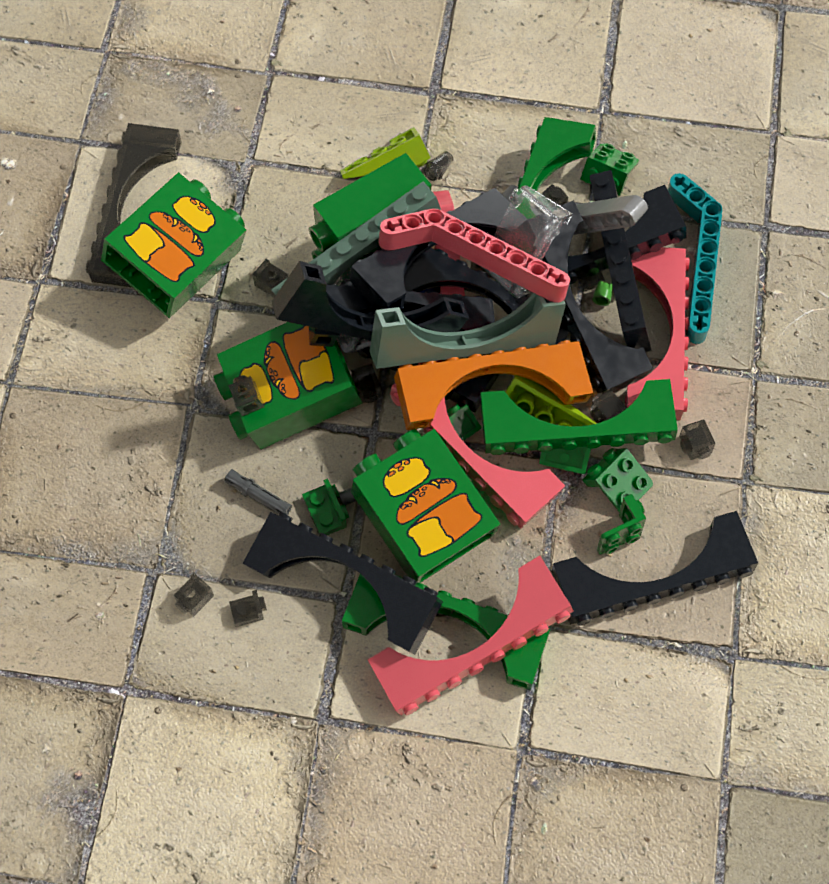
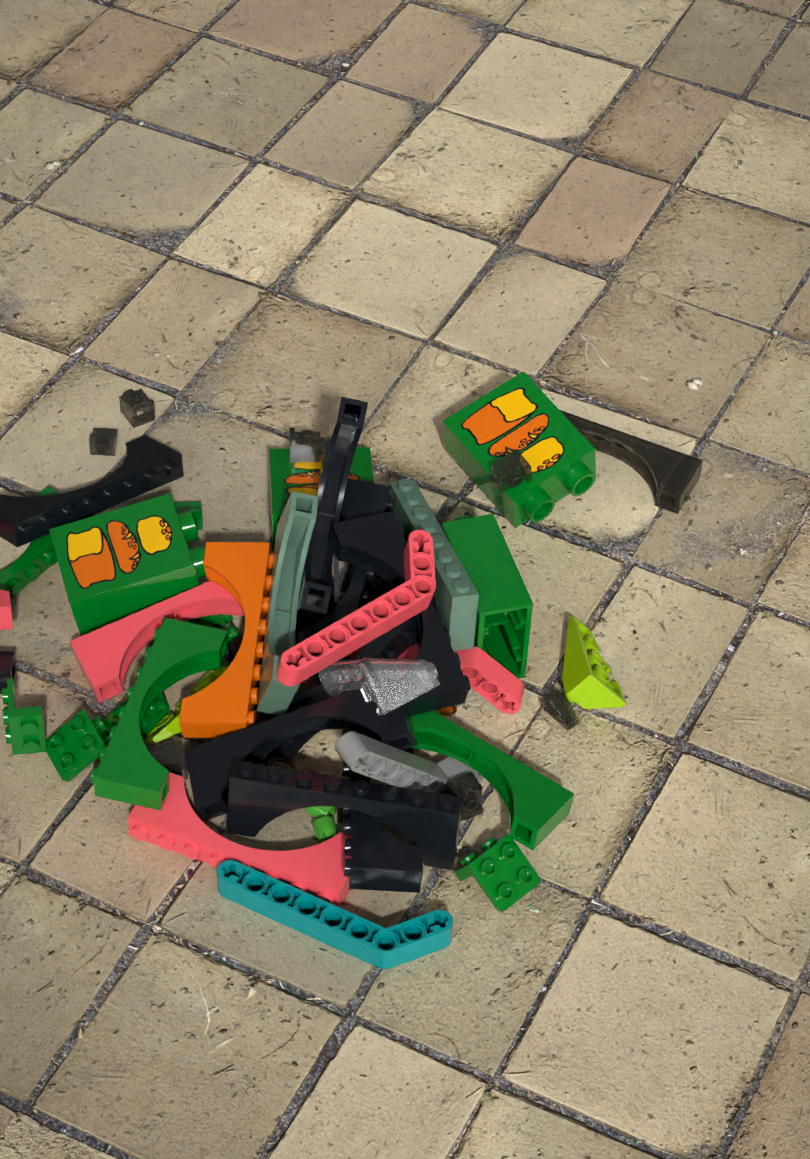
camera: 105 degrees right, 20 degrees down
(225, 228) = (510, 471): none -> clear smoke brick
(249, 488) = (240, 459): dark grey pin -> none
(697, 440) = (89, 829): clear smoke brick -> none

